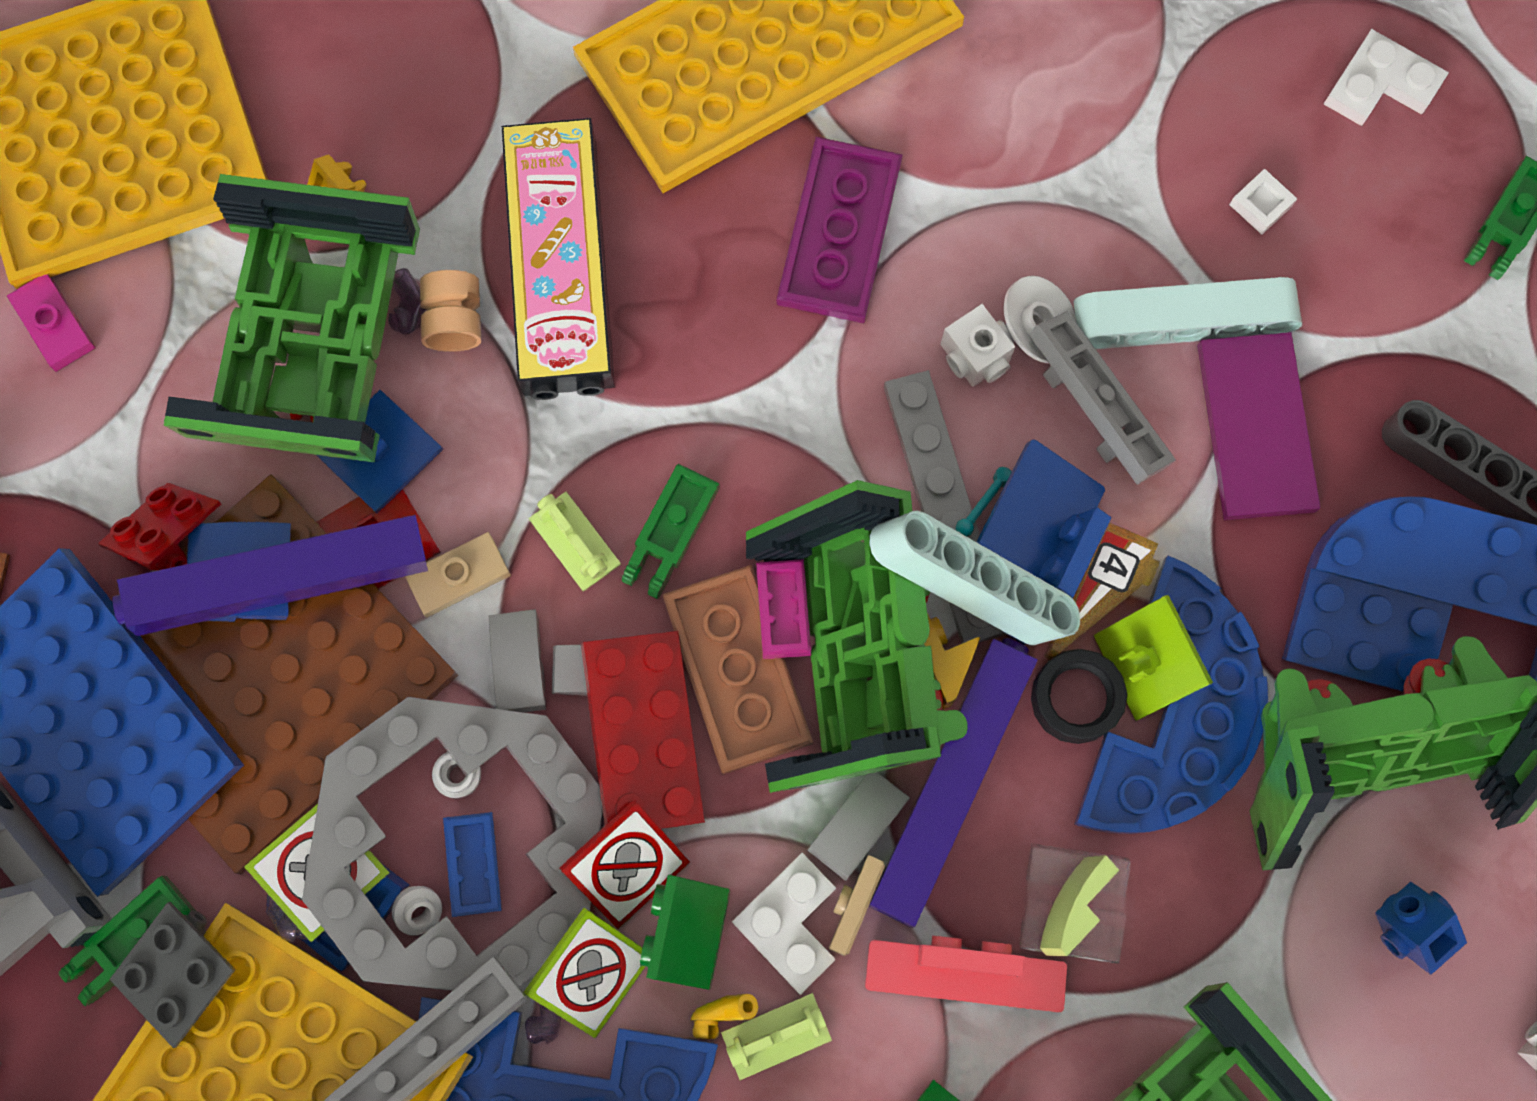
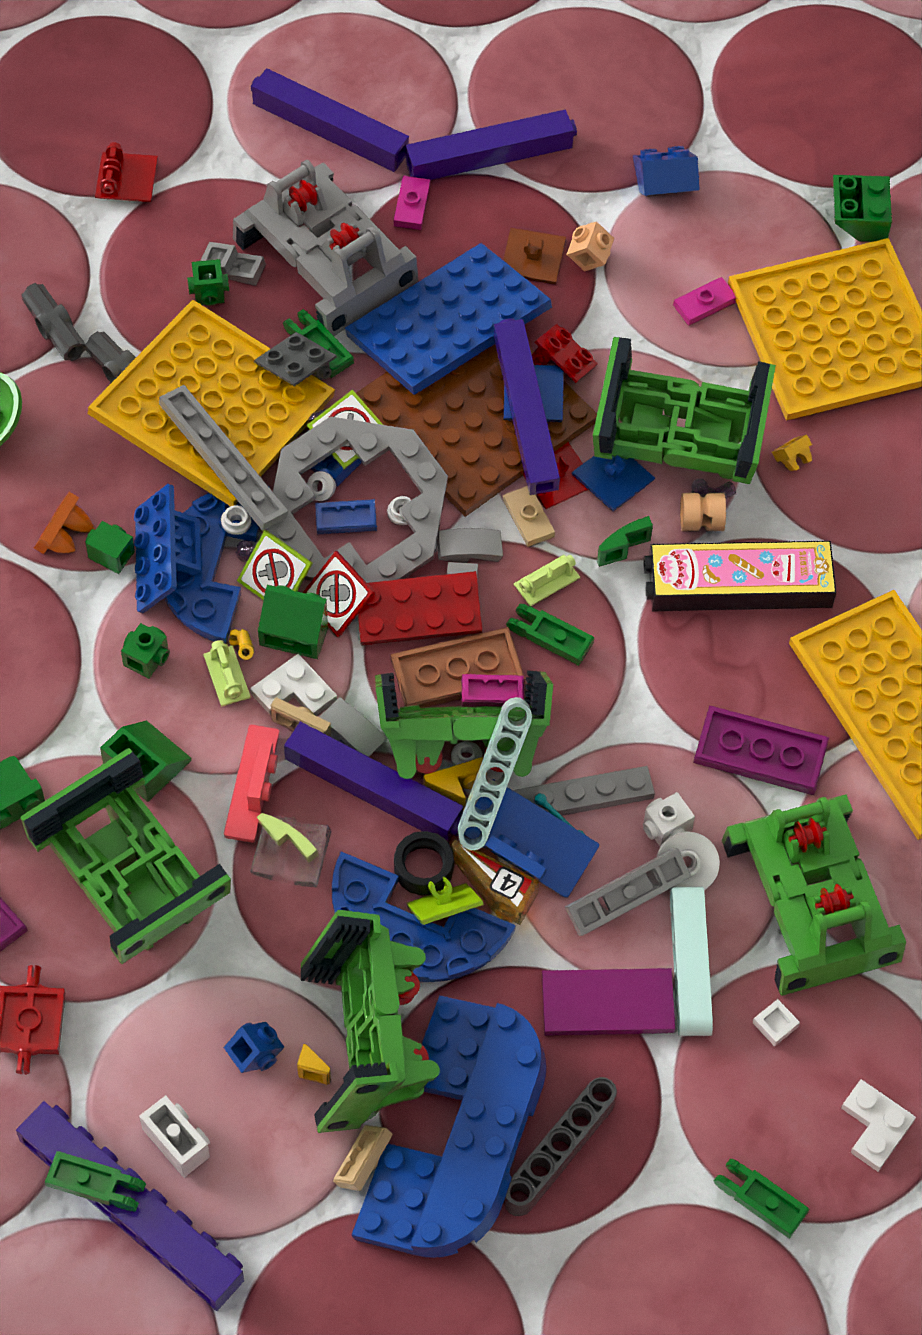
camera: 90 degrees right, 15 degrees down
(491, 1064) = (235, 513): none -> white plate
(508, 431) = (617, 544): none -> green slope
(1129, 130) = (826, 851): none -> bright green container
(1429, 837) = (312, 1067): none -> yellow slope

